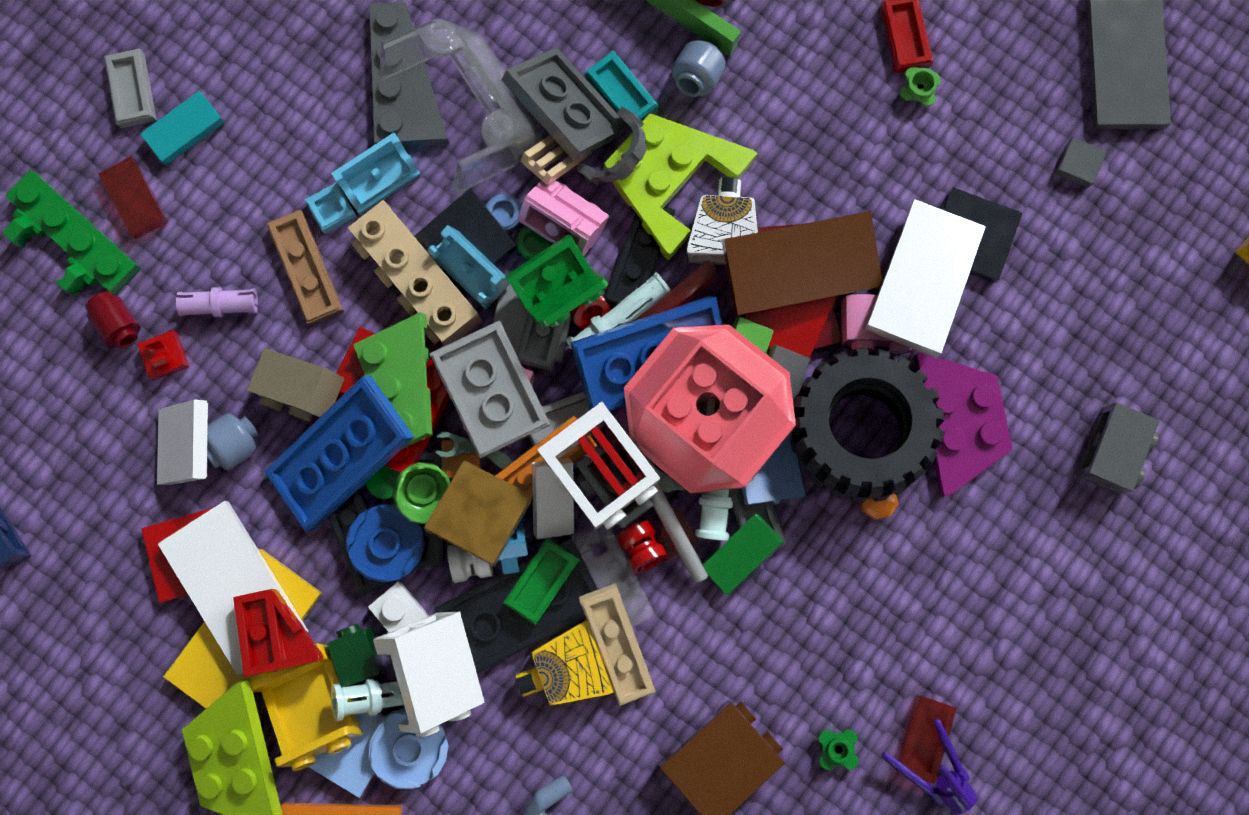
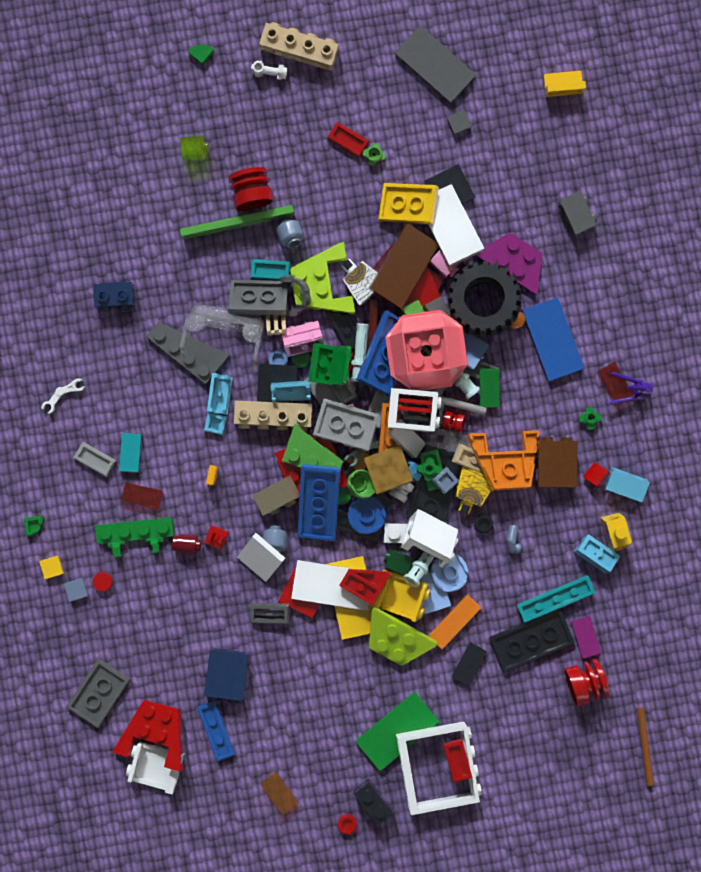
camera: 45 degrees left, 5 degrees up
(116, 527) = (285, 613): none -> dark grey tile
(217, 302) = (215, 498): lavender pin -> none
(247, 267) = (212, 475): none -> light orange tile
(305, 267) = (230, 453): medium nougat tile -> none
(527, 565) = (434, 469): none -> green plate
(530, 732) = (483, 523): none -> black plate
(540, 613) = (445, 480): none -> sand blue tile
(643, 693) = (506, 469): none -> orange wing
(899, 192) = (408, 203): none -> yellow tile
(902, 583) = (553, 339): none -> blue tile

